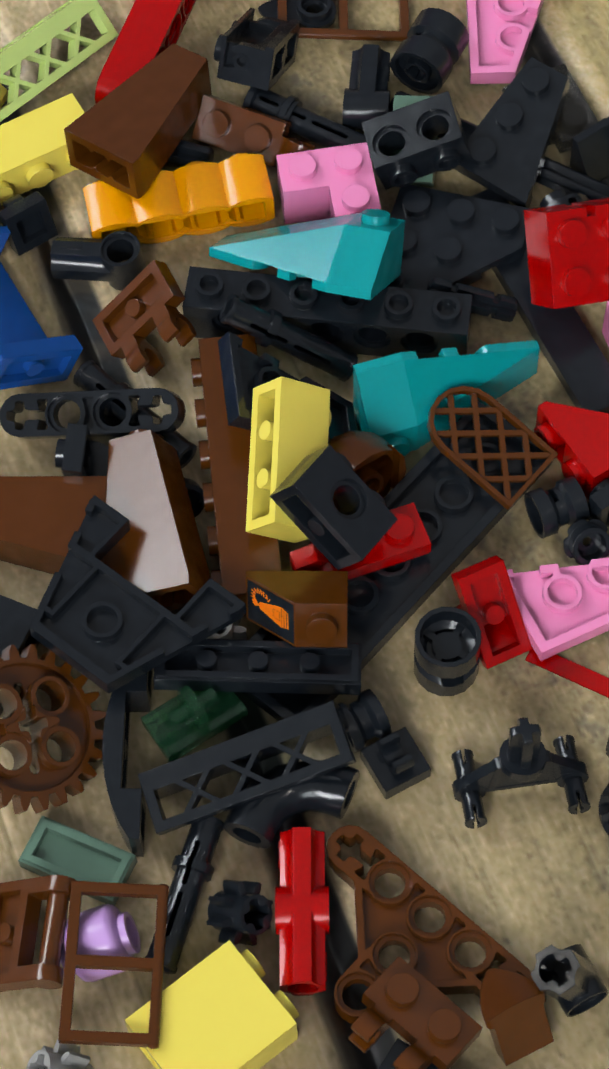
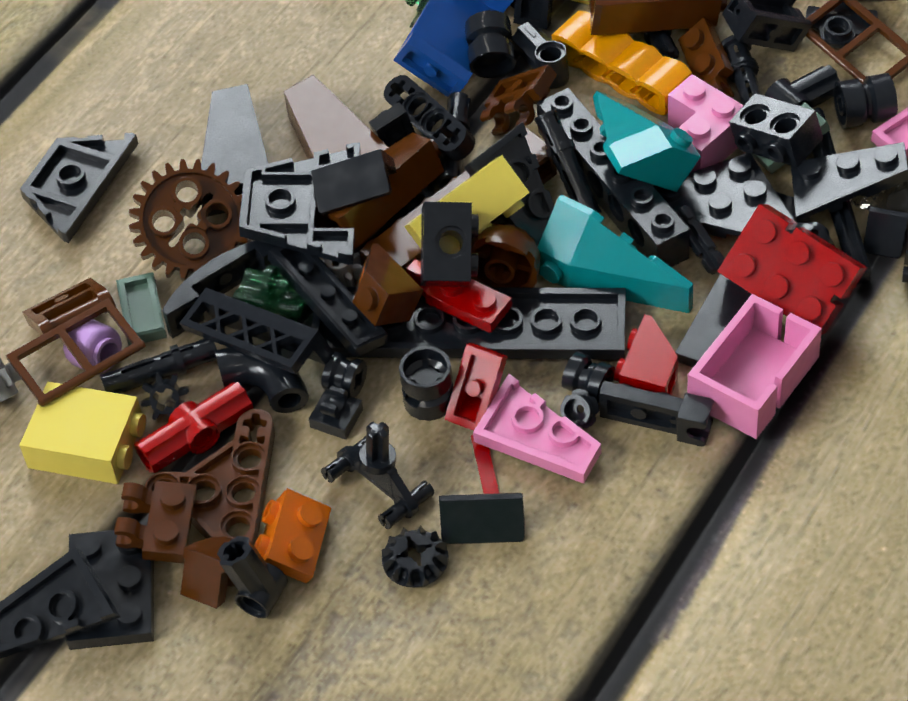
camera: 55 degrees right, 10 degrees down
(50, 295) = (490, 44): none -> black wheel
(158, 536) = (353, 181): none -> black panel
(501, 412) = (619, 321): reddish brown window -> none
(523, 907) = (293, 534): none -> orange bracket

